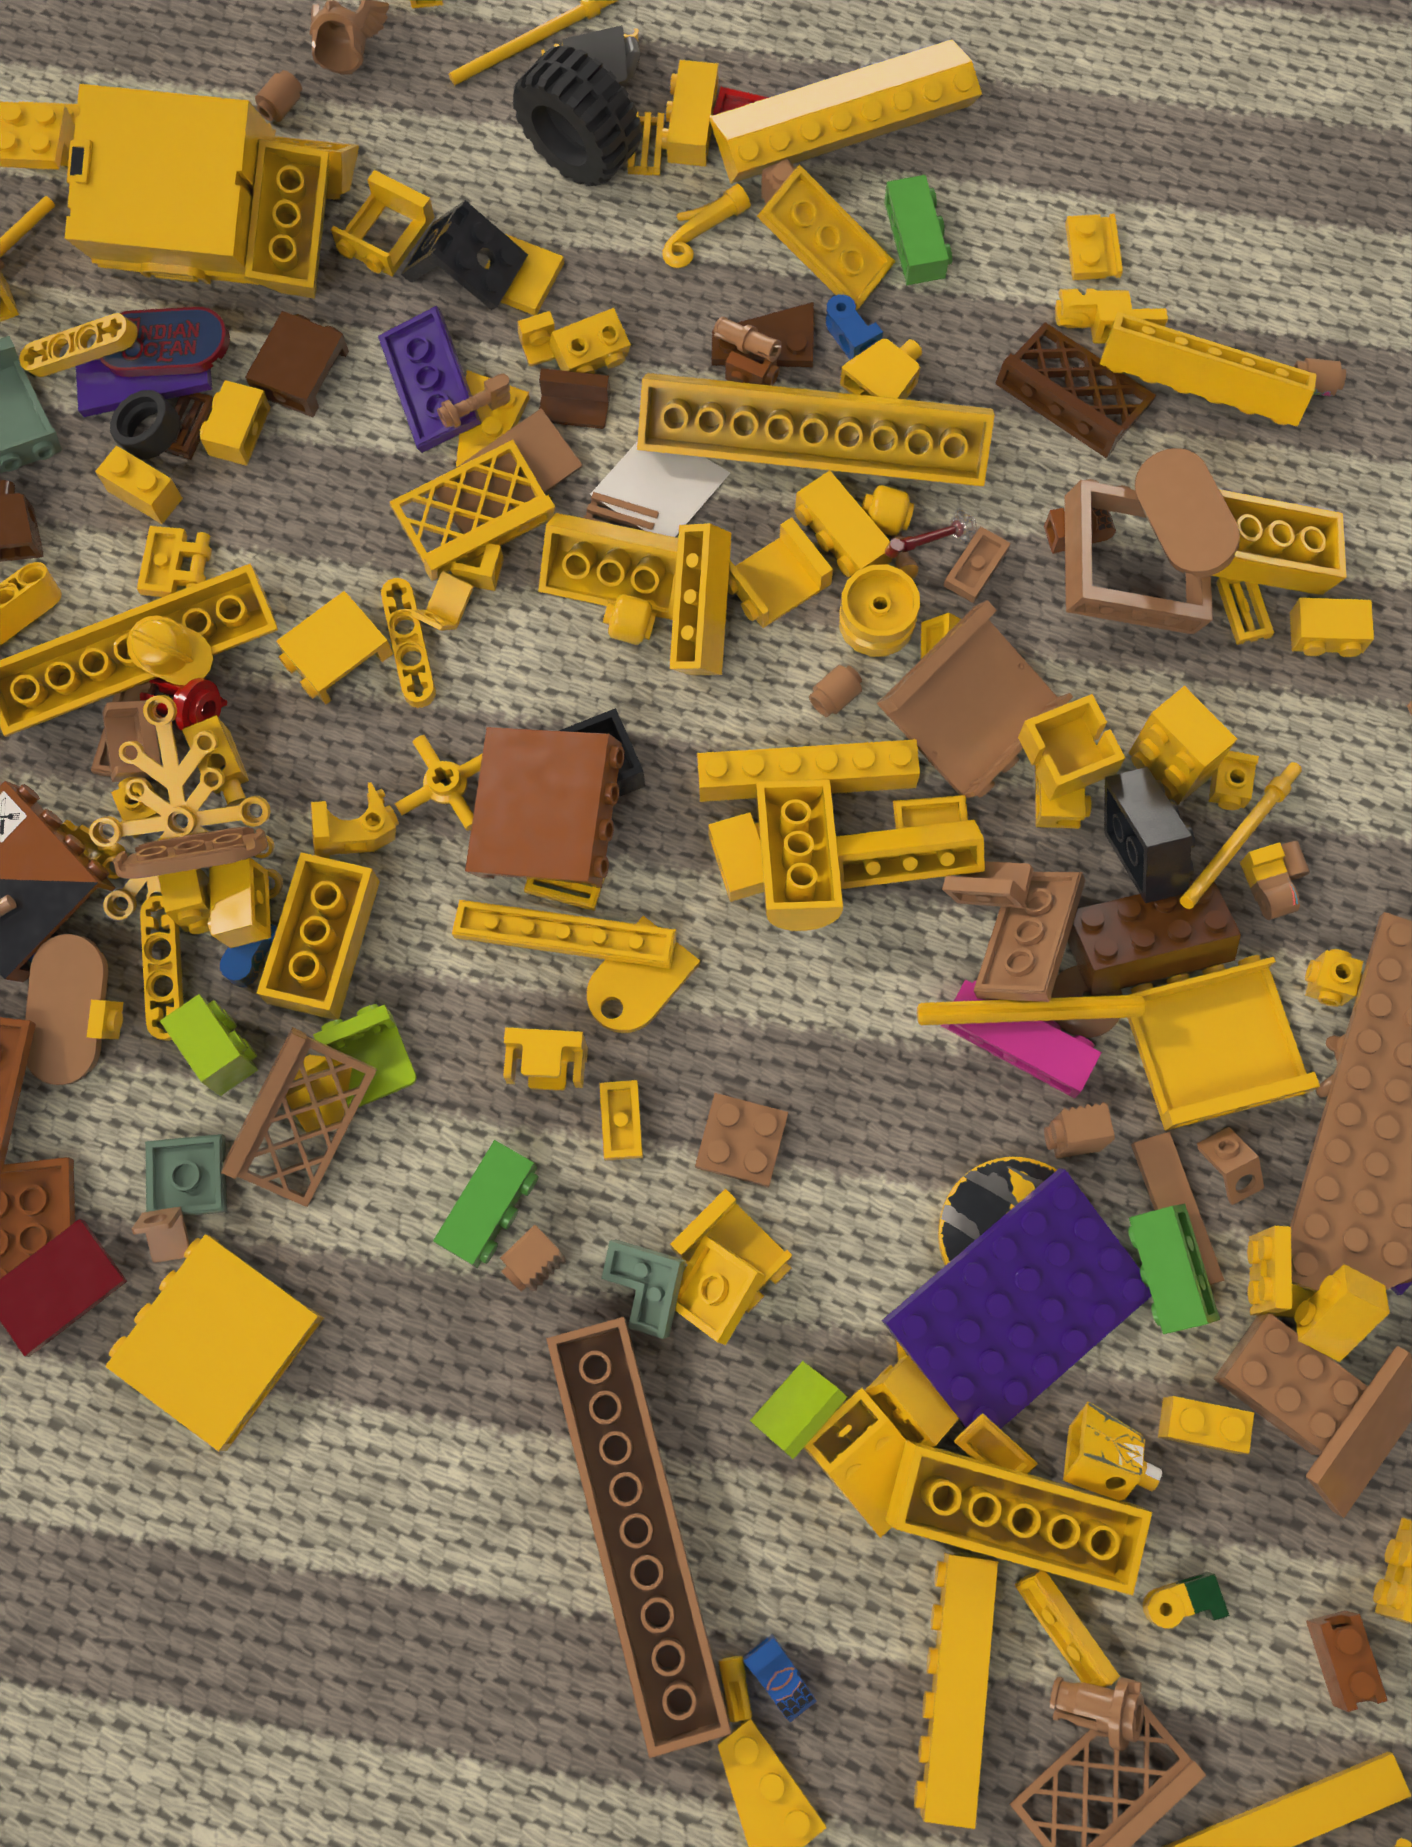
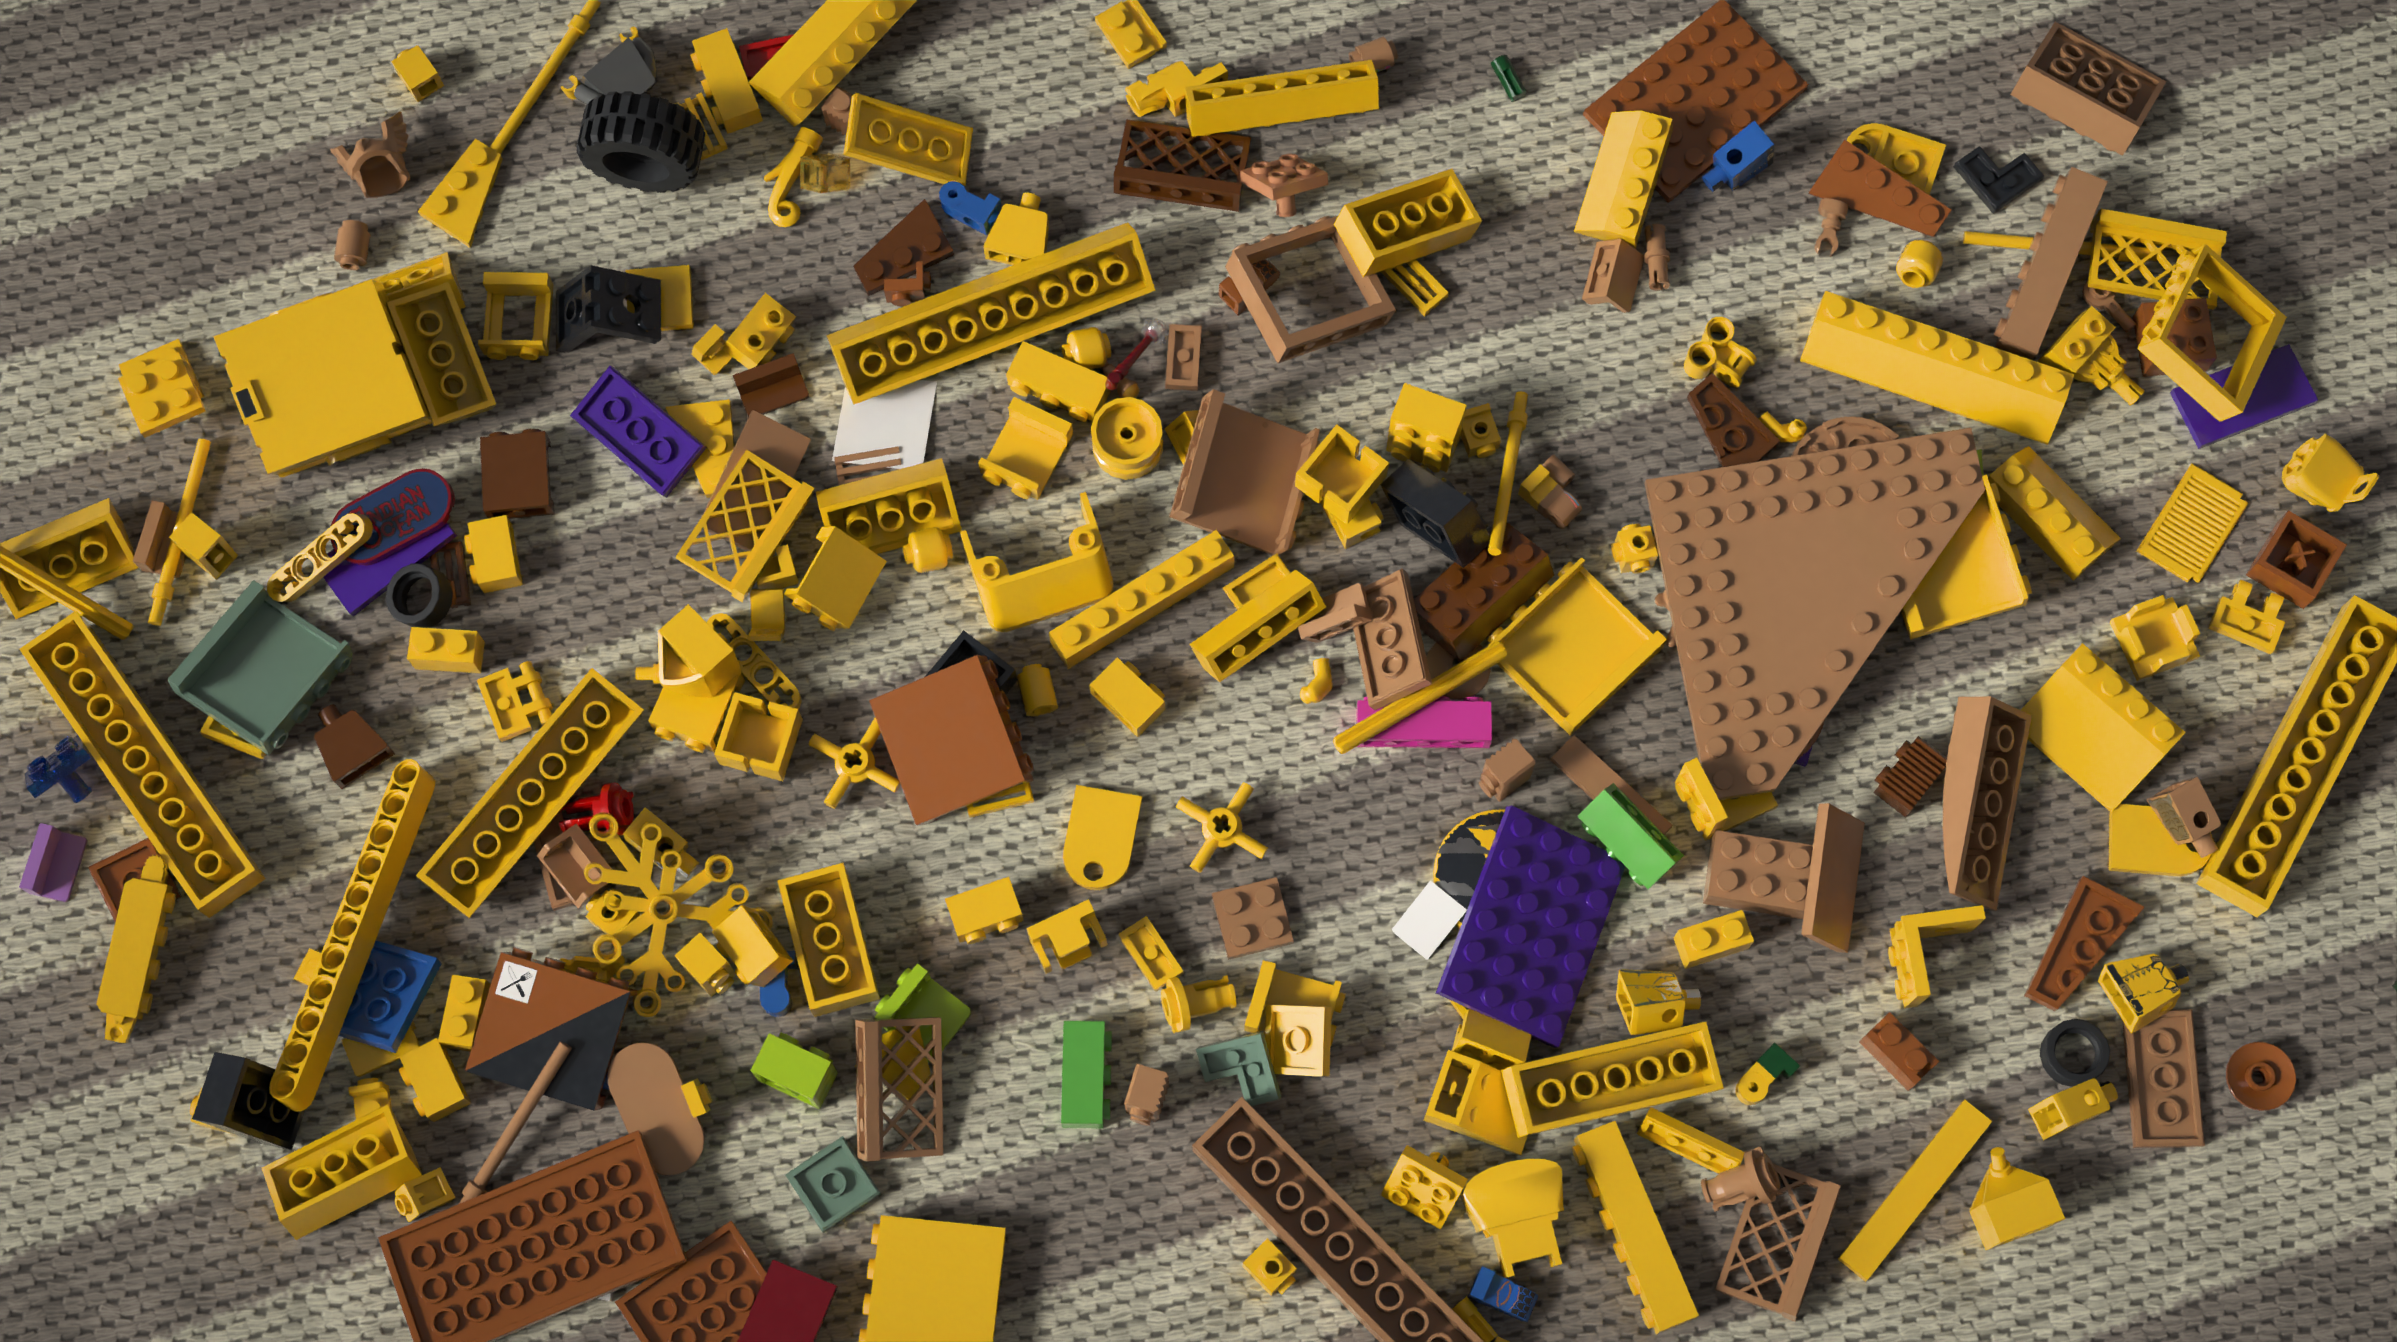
camera: 30 degrees left, 0 degrees up
(154, 969) = (710, 1036): yellow beam -> none
(164, 1233) = (844, 1236): medium nougat bracket -> none
(169, 650) = (566, 775): yellow piece -> none
(190, 852) = (693, 927): medium nougat tile -> none
(341, 598) = (691, 657): none -> yellow piece
(357, 835) = (791, 853): yellow tile -> none
(364, 709) = (758, 739): none -> yellow piece
(402, 100) = (462, 194): none -> yellow wing
(482, 989) = (984, 911): none -> yellow brick
(495, 394) = (706, 419): medium nougat hinge -> none
(526, 600) = (837, 579): none -> yellow panel
(557, 1510) = (1270, 1268): none -> yellow brick
(564, 933) = (1021, 833): yellow tile -> none
(637, 1191) = (1195, 1000): none -> yellow piece
(657, 805) = (1037, 690): none -> yellow brick
(700, 599) = (979, 502): yellow brick -> none
(722, 712) = (1045, 589): none -> yellow windscreen
(734, 235) = (825, 173): none -> clear yellow panel
(747, 339) = (892, 263): medium nougat pin -> none
(756, 1046) = (1223, 839): none -> yellow bar
(761, 1515) = (1424, 1186): none -> yellow plate
(798, 1409) = (1409, 1093): lime tile -> none
(799, 854) = (1175, 669): yellow brick -> none
(836, 690) = (1128, 521): medium nougat brick -> none
(843, 1600) = (1517, 1209): none -> yellow piece
(917, 229) = (977, 91): bright green brick -> none
(918, 1239) = (1429, 920): none -> white sticker
(938, 945) = (1320, 685): none -> yellow arm
(990, 1444) = (1563, 1039): yellow tile -> none
(1155, 437) = (1283, 180): none -> nougat plate
(1187, 512) = (1331, 235): medium nougat tile -> none
(1233, 1160) = (1632, 731): medium nougat bracket -> none
(1331, 626) = (1490, 265): yellow brick -> none
(1341, 1312) = (1766, 801): yellow brick -> none

